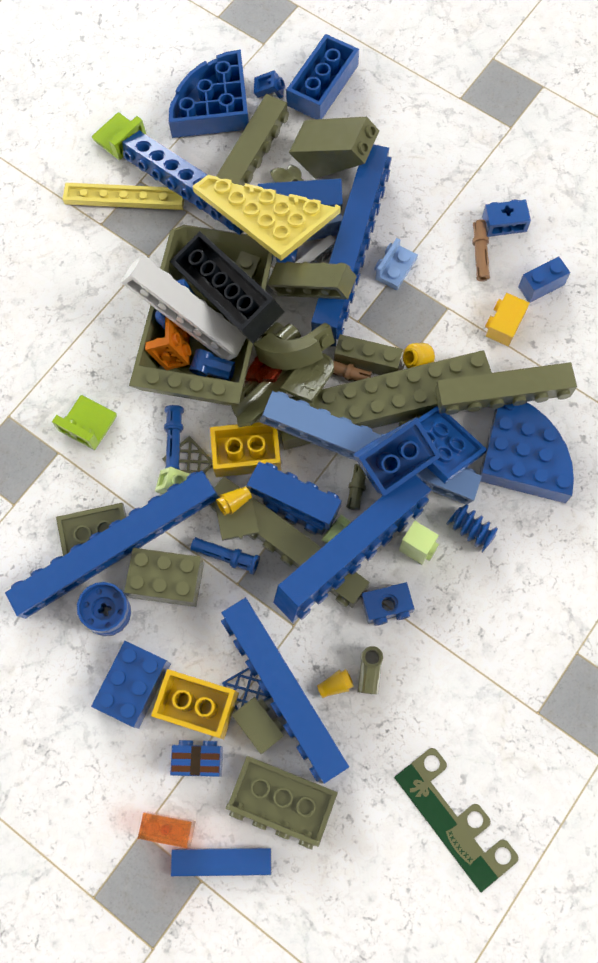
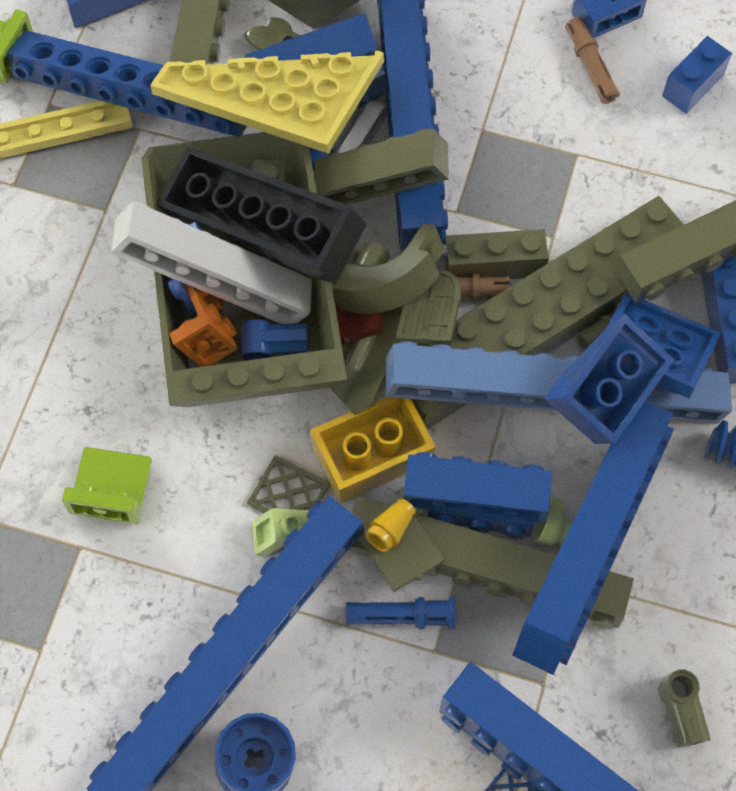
camera: 25 degrees left, 5 degrees down
(79, 526) = (169, 642): olive wing -> none
(164, 577) = (325, 678): olive brick -> none
(173, 428) = (249, 451): blue pin -> none
(336, 684) = (643, 746): yellow cone -> none
(357, 487) = (555, 447): olive pin -> none
(395, 265) = (480, 116): light blue bracket -> none
(397, 594) = (679, 584): blue brick -> none
(418, 354) = (567, 232): yellow head -> none
(419, 543) = (681, 497): yellowish green brick -> none
(507, 319) = (668, 144): yellow brick -> none

